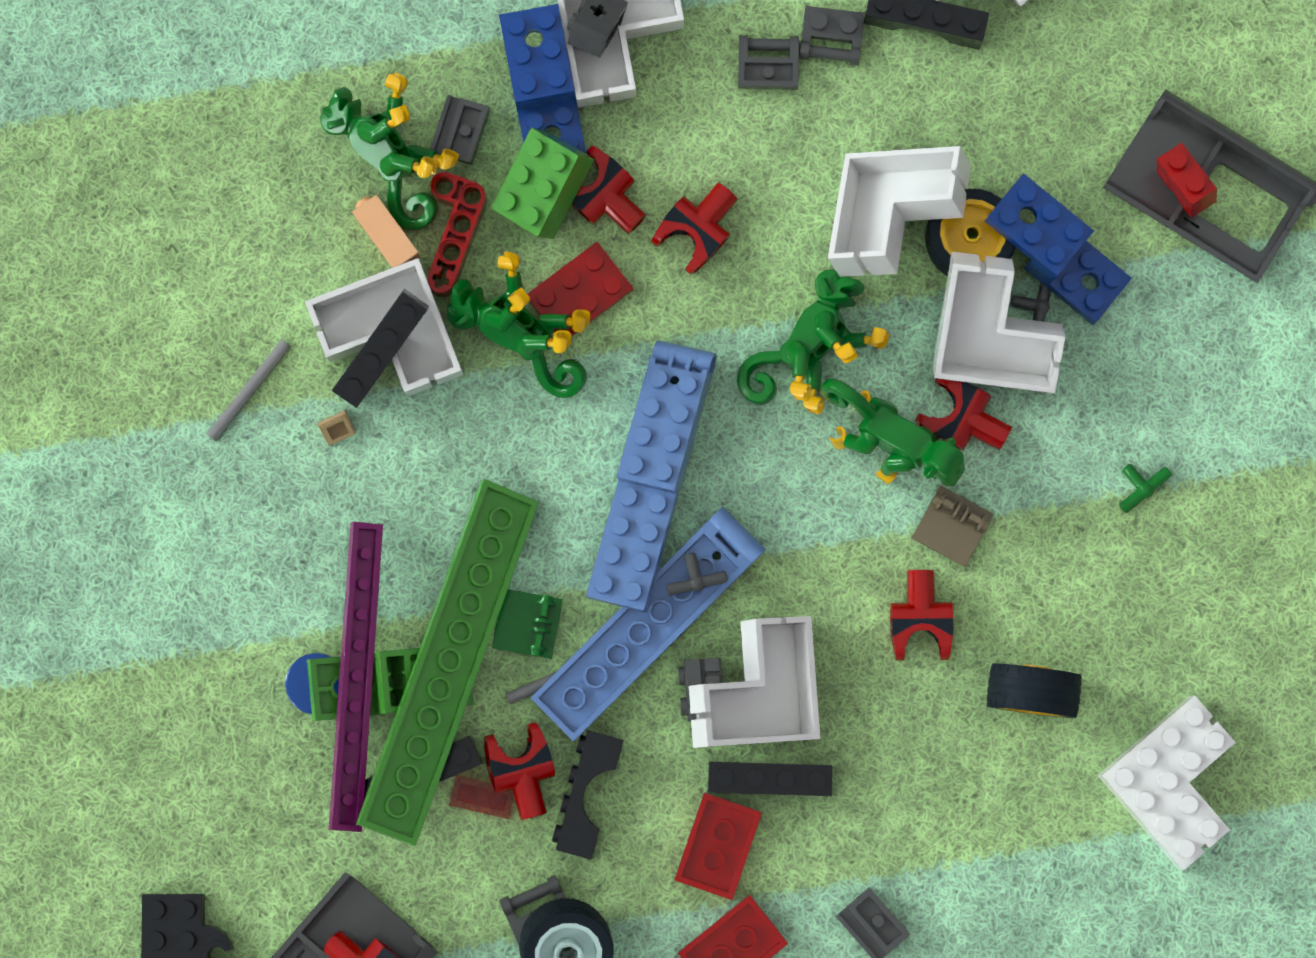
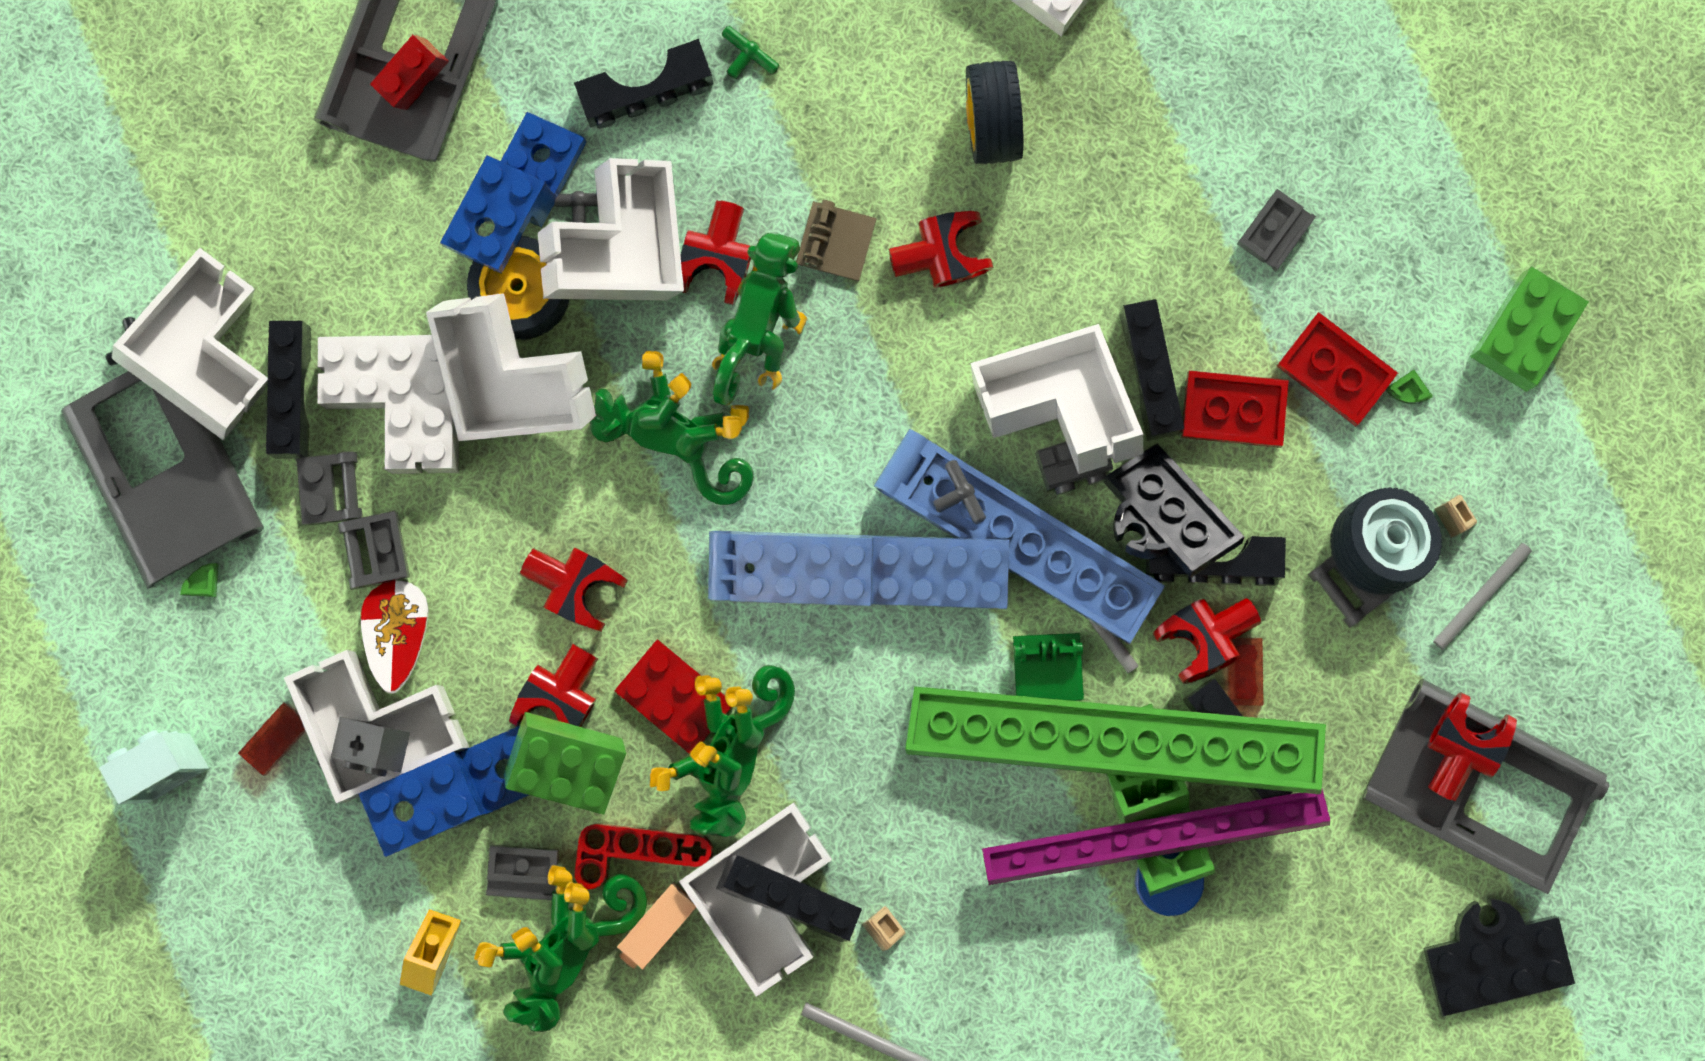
camera: 105 degrees left, 0 degrees up
(411, 37) = (429, 952): none -> yellow slope
(636, 760) = (1168, 513): none -> plate
(692, 63) = (393, 631): none -> shield
(911, 119) = (404, 380): none -> white piece
(1137, 425) = (683, 73): none -> black arch

